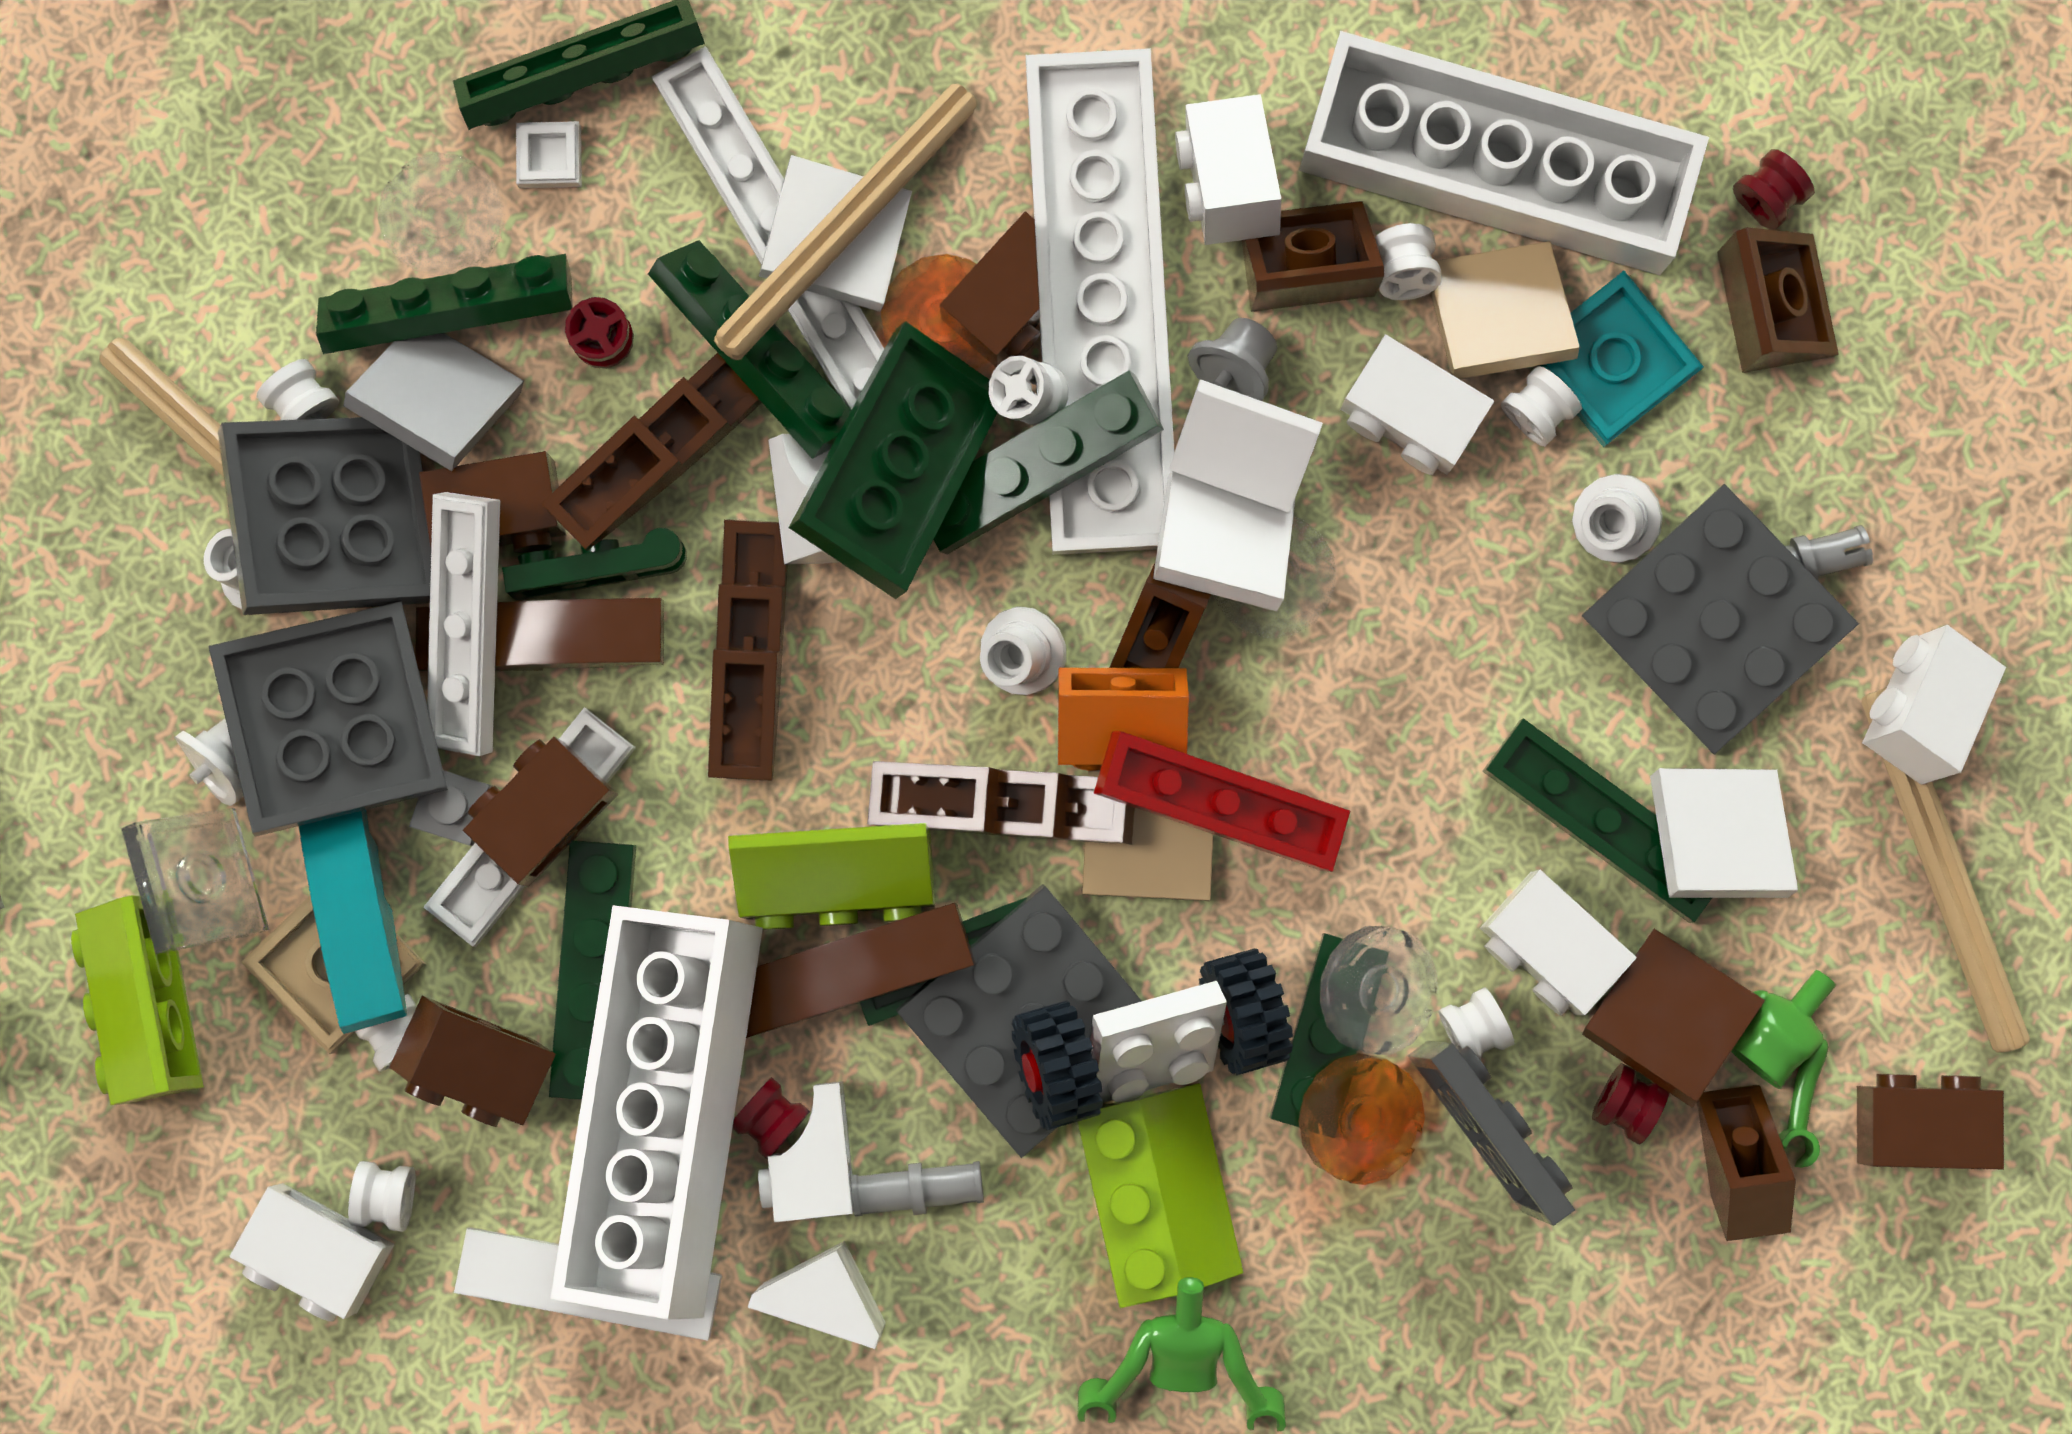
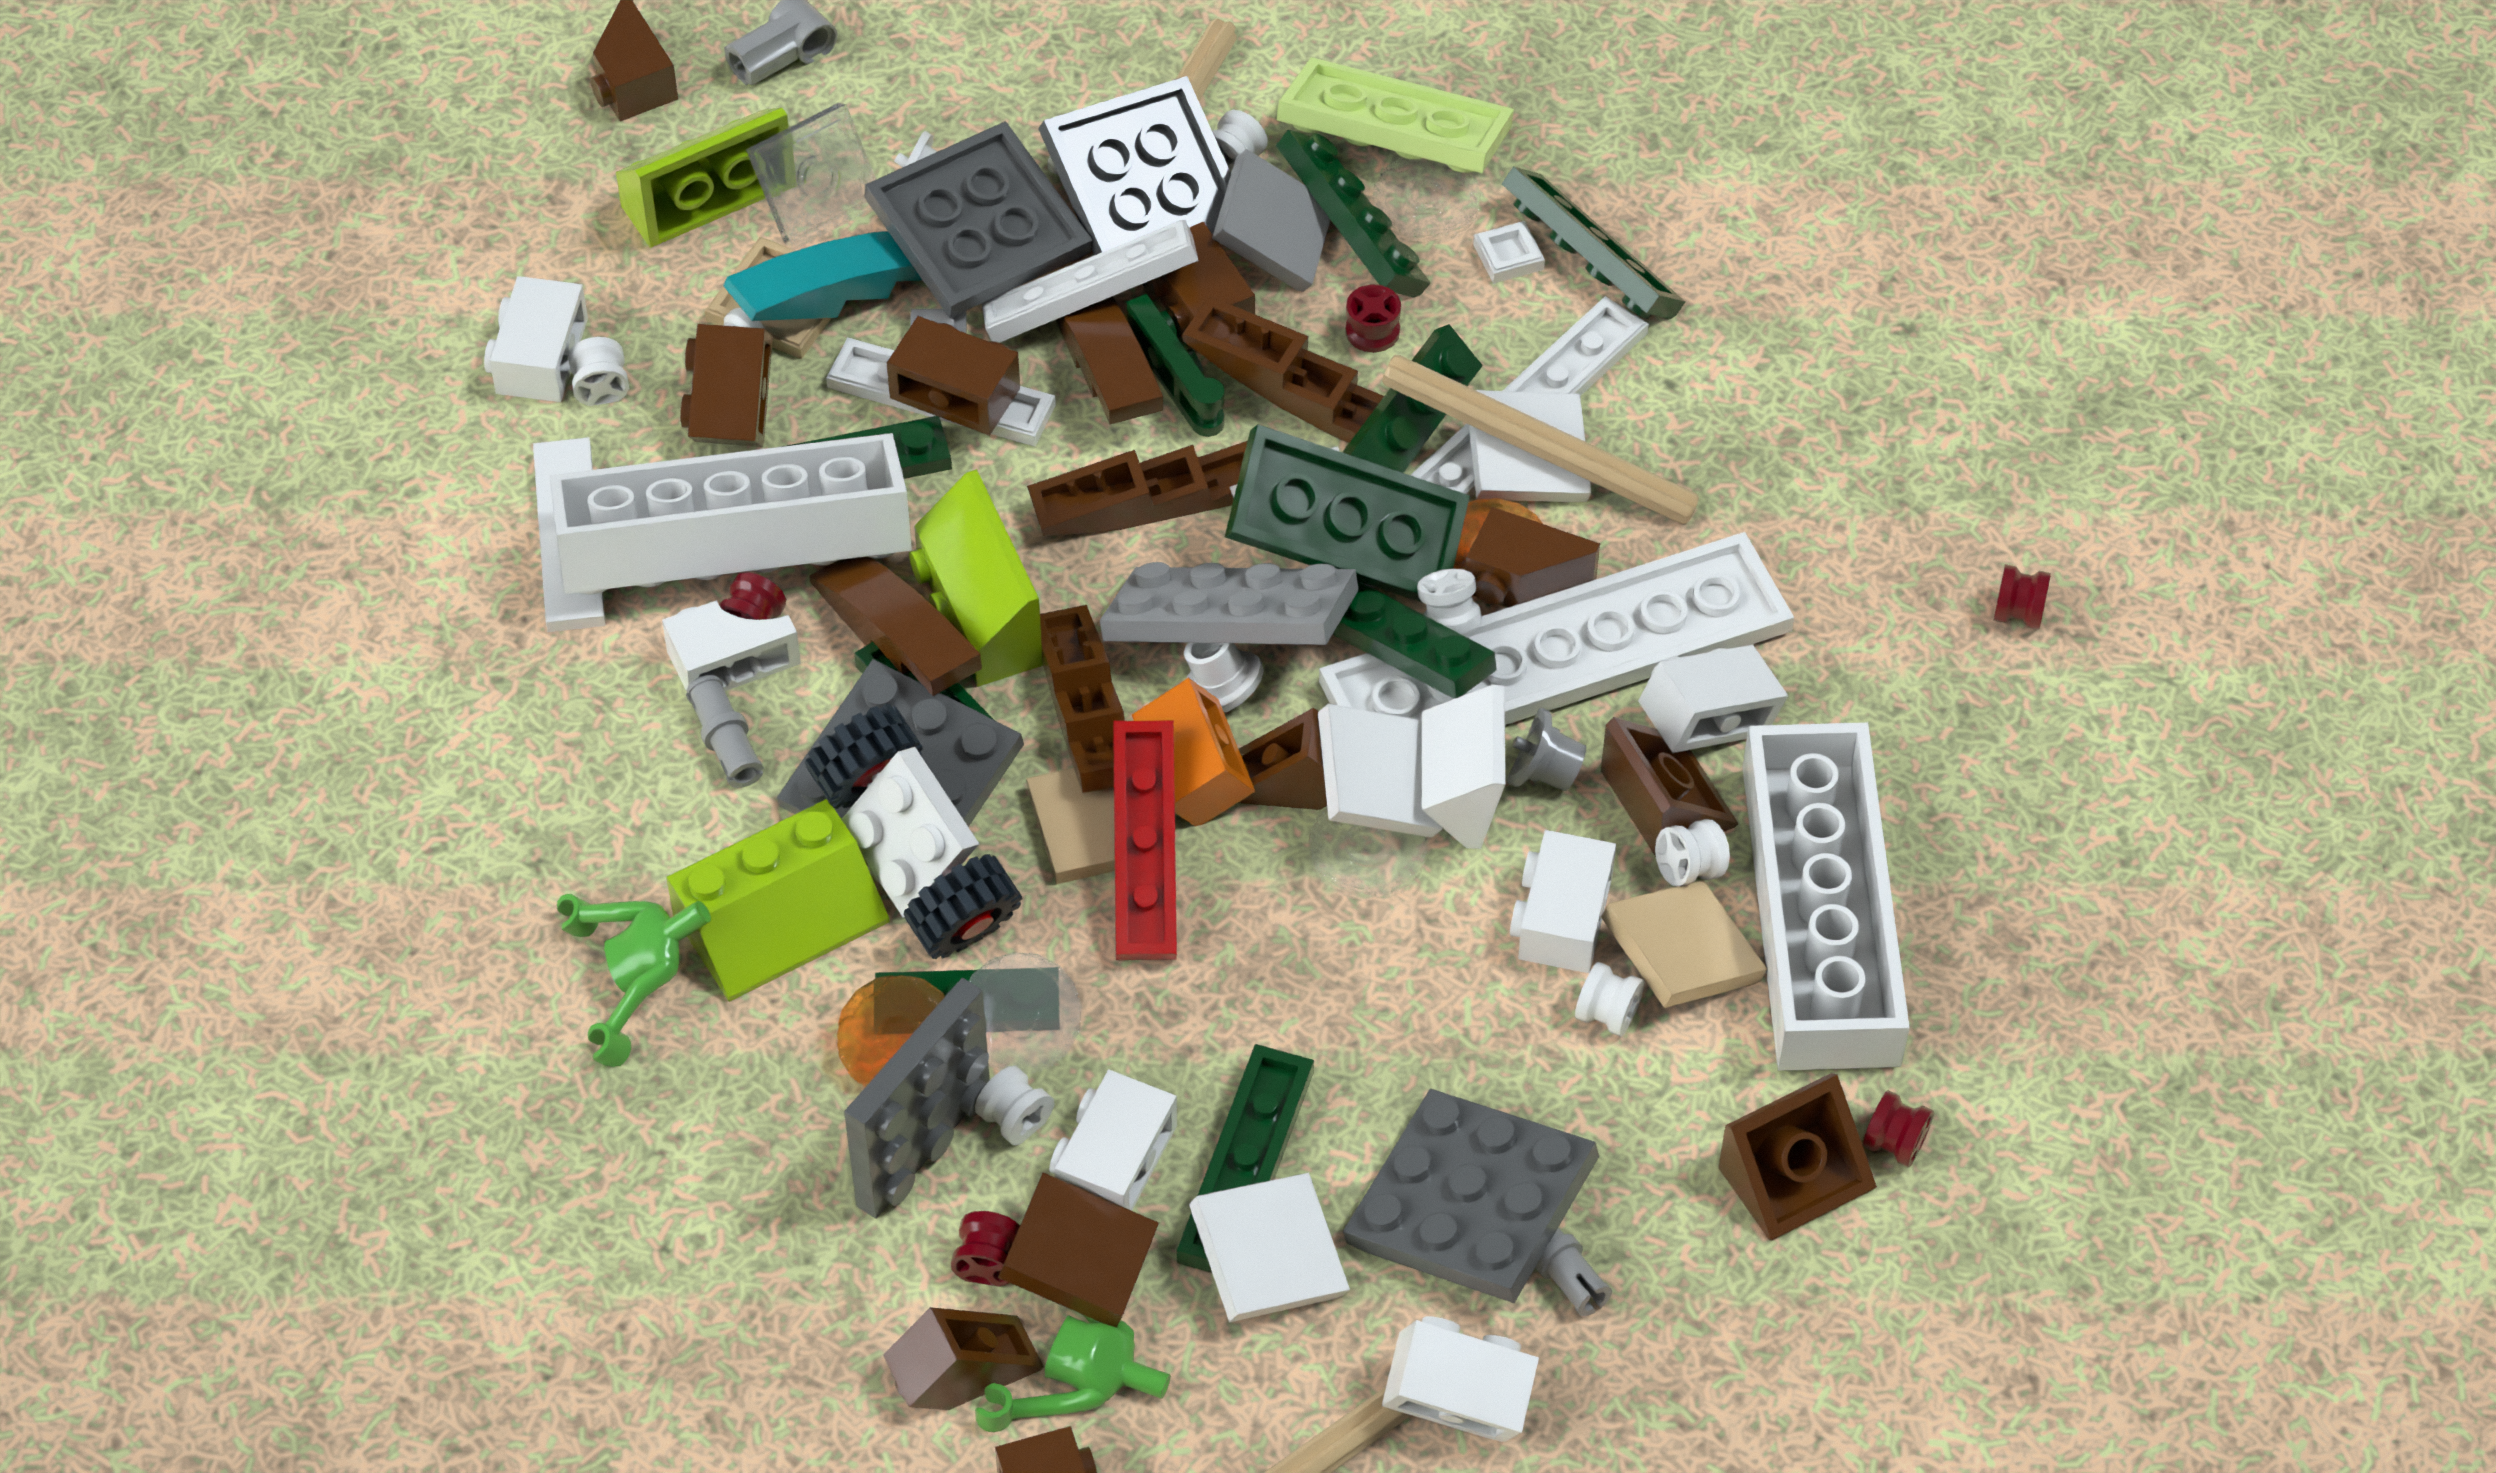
camera: 70 degrees right, 30 degrees down
(324, 207) = (1395, 115): none -> yellowish green plate
(824, 1296) = (614, 671): white slope -> none
(961, 619) = (1230, 604): none -> light grey plate
(1617, 518) = (1530, 1083): white piece -> none
(1624, 359) = (1683, 1058): teal tile -> none

